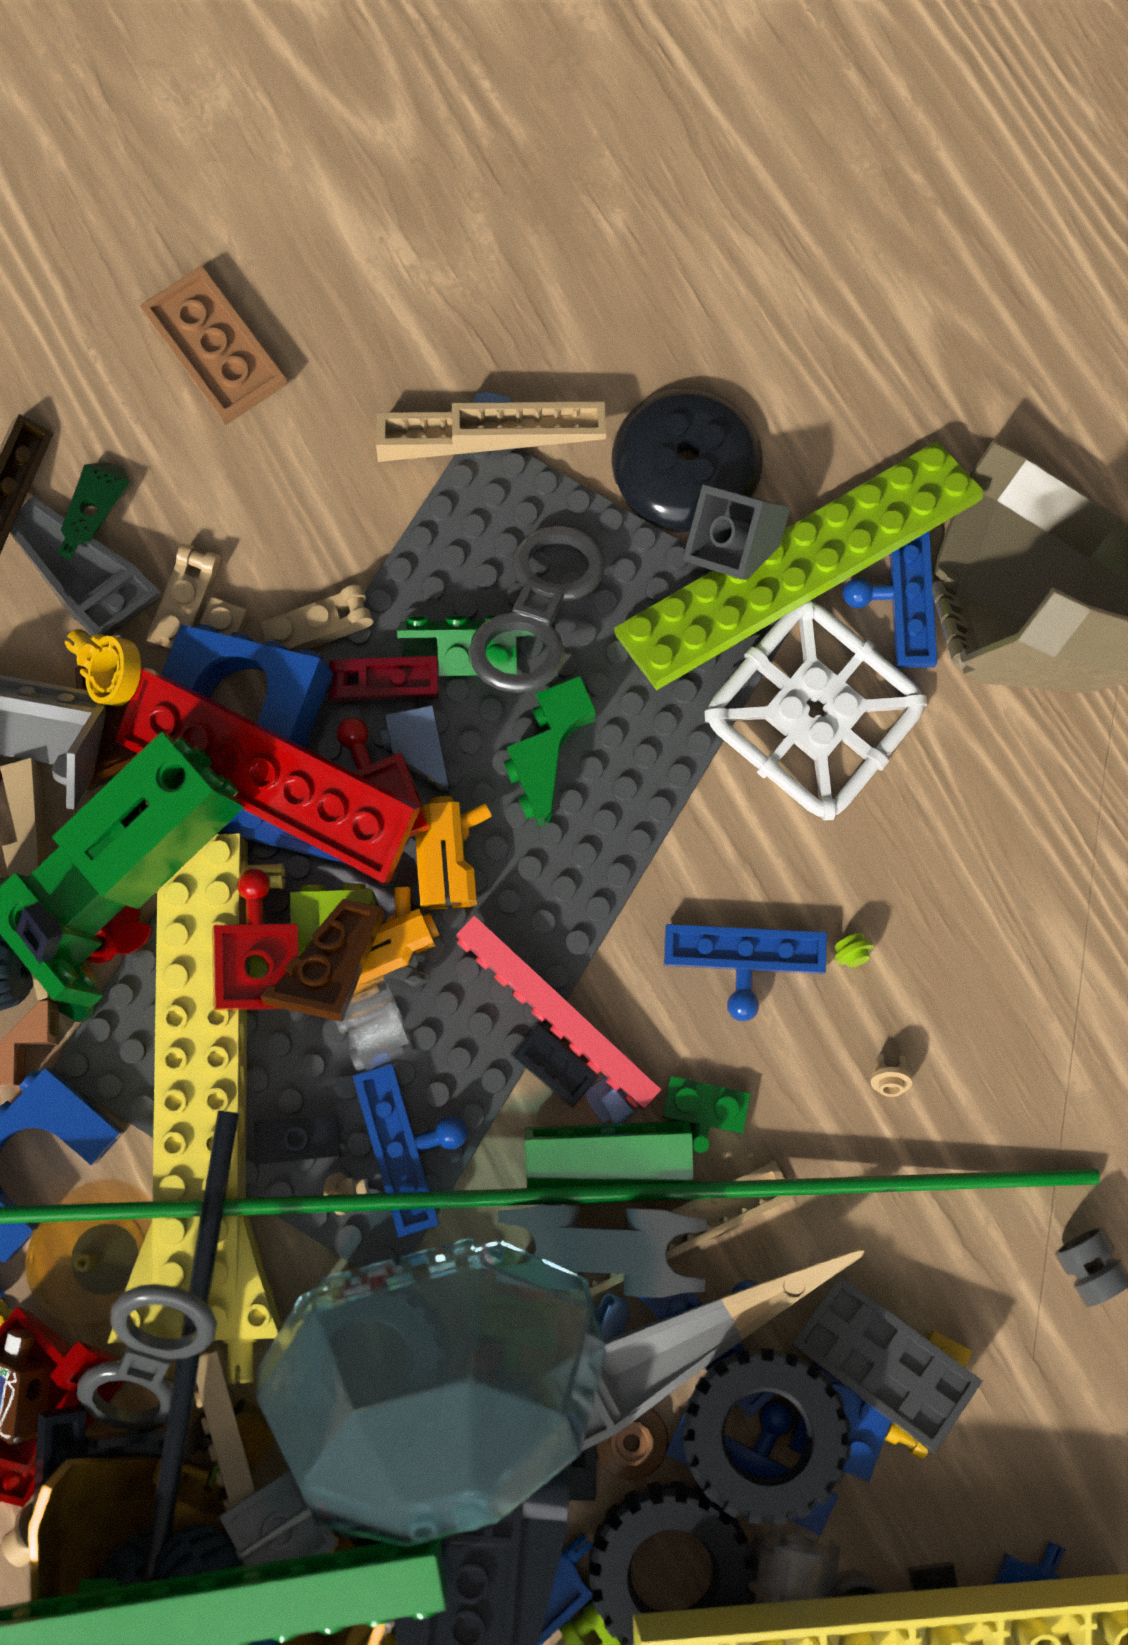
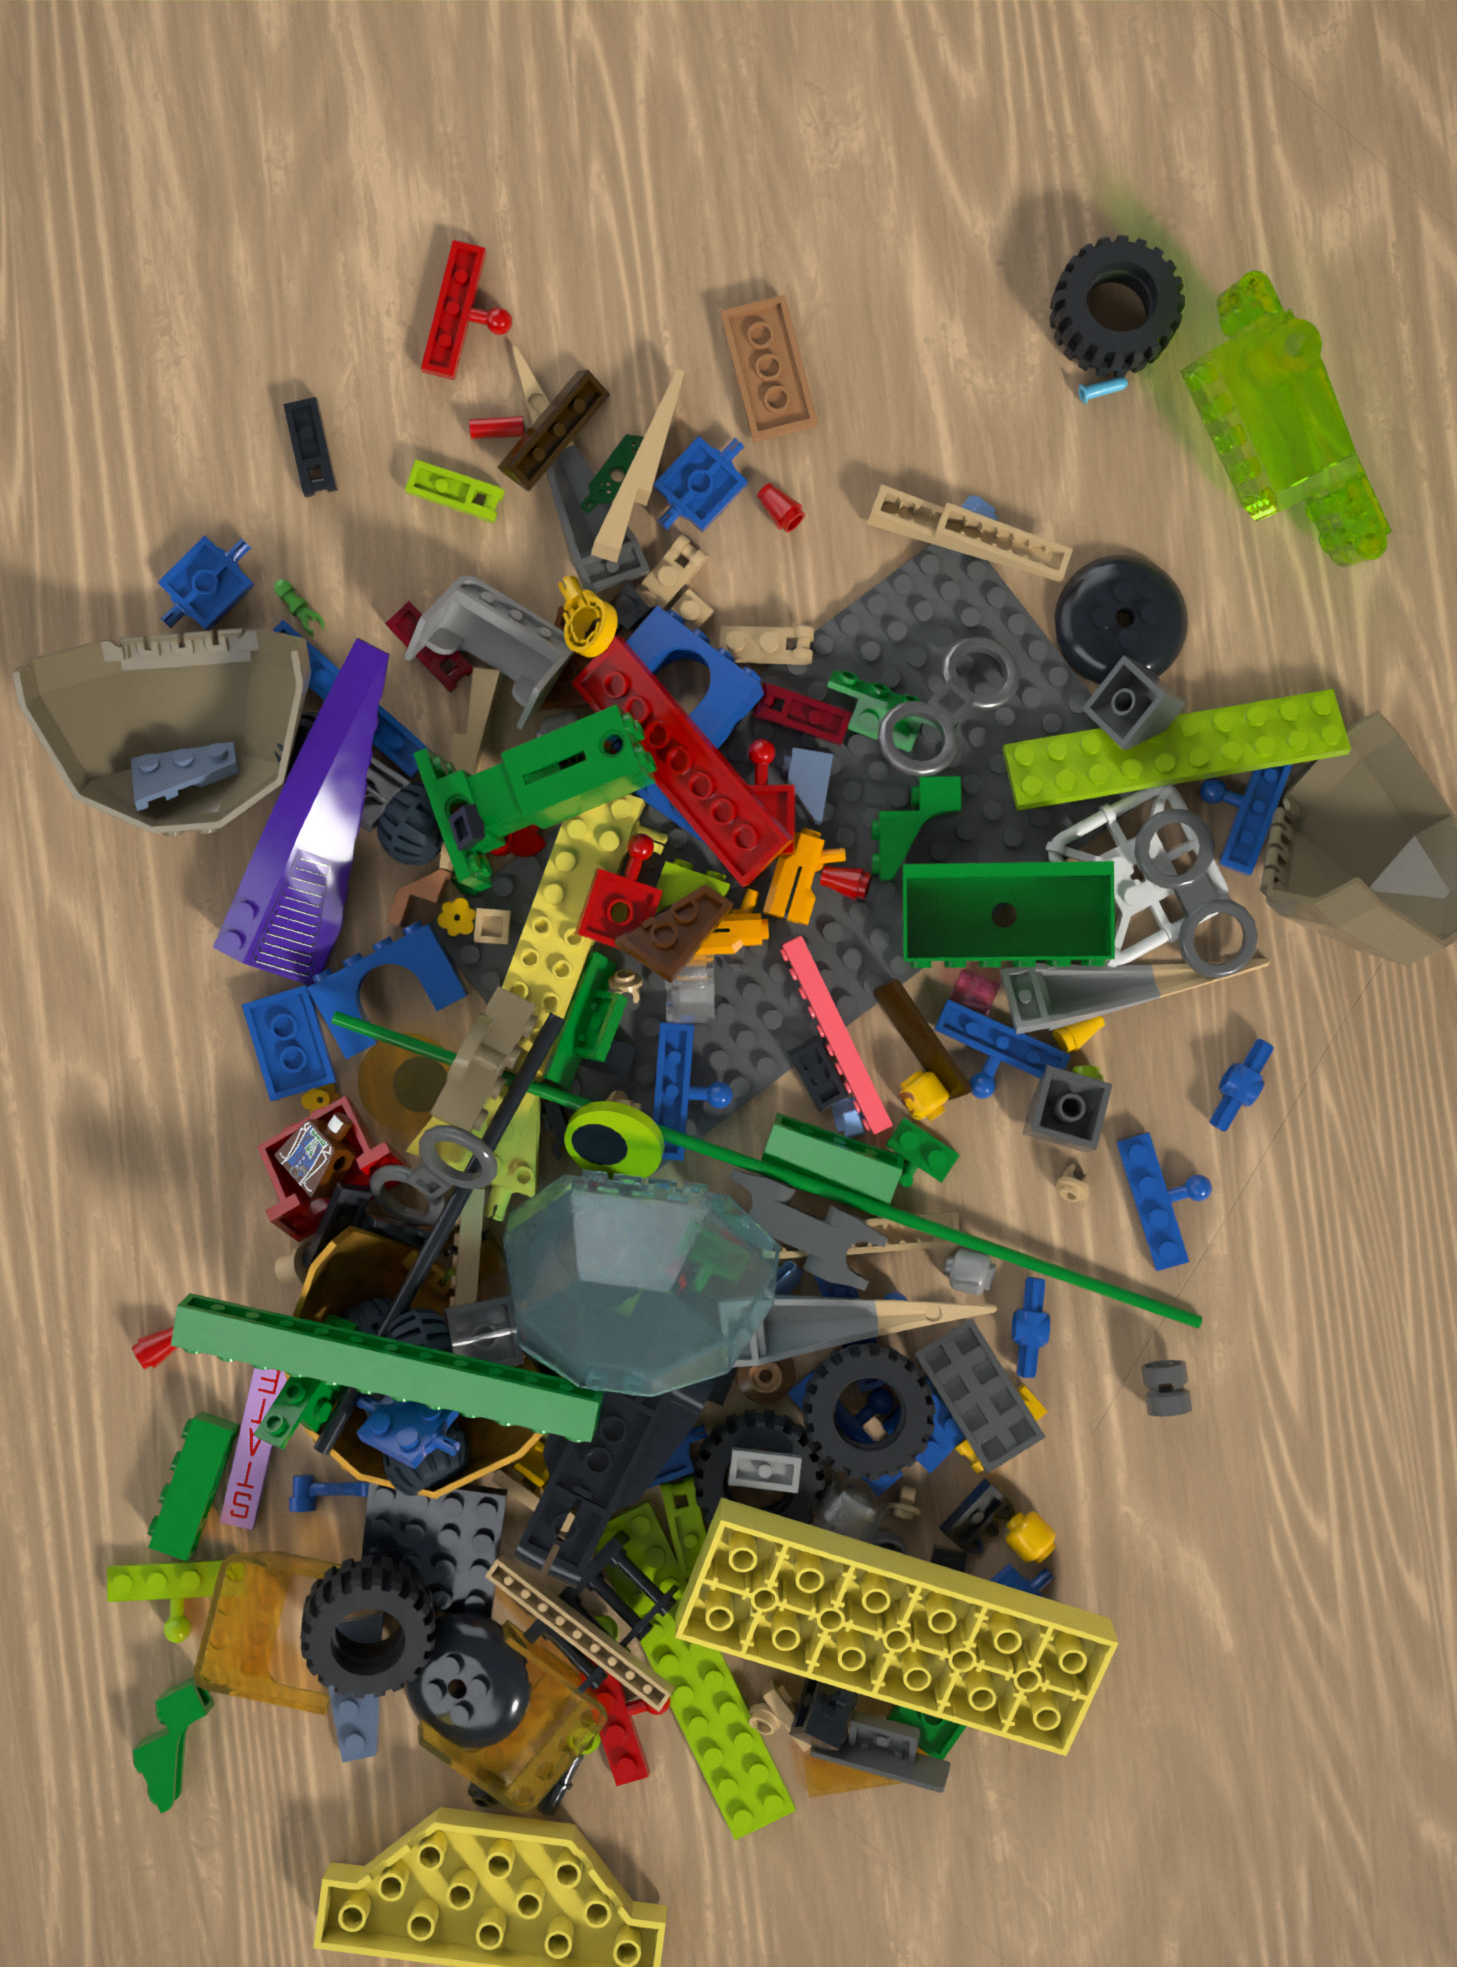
camera: 20 degrees right, 10 degrees up
(69, 1045) = (447, 918): none -> yellow plant
(112, 500) = (639, 478): none -> tan slope
(122, 1043) = (492, 926): none -> tan plate
(151, 1193) = (482, 1060): none -> dark tan brick
(153, 639) = (630, 607): none -> black plate
(183, 486) = (700, 484): none -> blue plate
(267, 1108) = (589, 1022): none -> green bracket
(275, 1236) = (555, 1120): none -> black plate
(279, 477) = (782, 509): none -> red cone
(295, 1046) = (626, 981): none -> tan plate
(347, 1229) = (614, 1139): none -> lime piece
(502, 838) = (847, 881): none -> red cone
(541, 109) = (1131, 266): none -> black tyre
(569, 239) = (1101, 388): none -> medium azure piece
(655, 980) = (921, 1037): none -> dark brown slope
(672, 1558) = (765, 1470): none -> light grey plate
(682, 1042) = (923, 1095): none -> yellow head
(692, 905) = (975, 991): none -> clear pink slope
(743, 769) = (1059, 906): none -> green piece
(768, 195) = (1282, 424): none -> clear neon green piece
(795, 867) = (1067, 995): none -> light grey plate
(816, 1222) = (970, 1271): none -> light grey head
(821, 904) = (1076, 1035): none -> yellow cone
(848, 993) = (1068, 1109): none -> dark grey slope
(855, 1537) = (903, 1508): none -> tan plate
(886, 704) = (1196, 893): none -> dark grey bar
(911, 1259) = (1030, 1327): none -> blue axle
(944, 1512) = (977, 1516): none -> black plate
(988, 1058) = (1154, 1200): none -> blue plate
(1016, 1510) = (1030, 1537): none -> yellow head
(1025, 891) = (1241, 1084): none -> blue axle

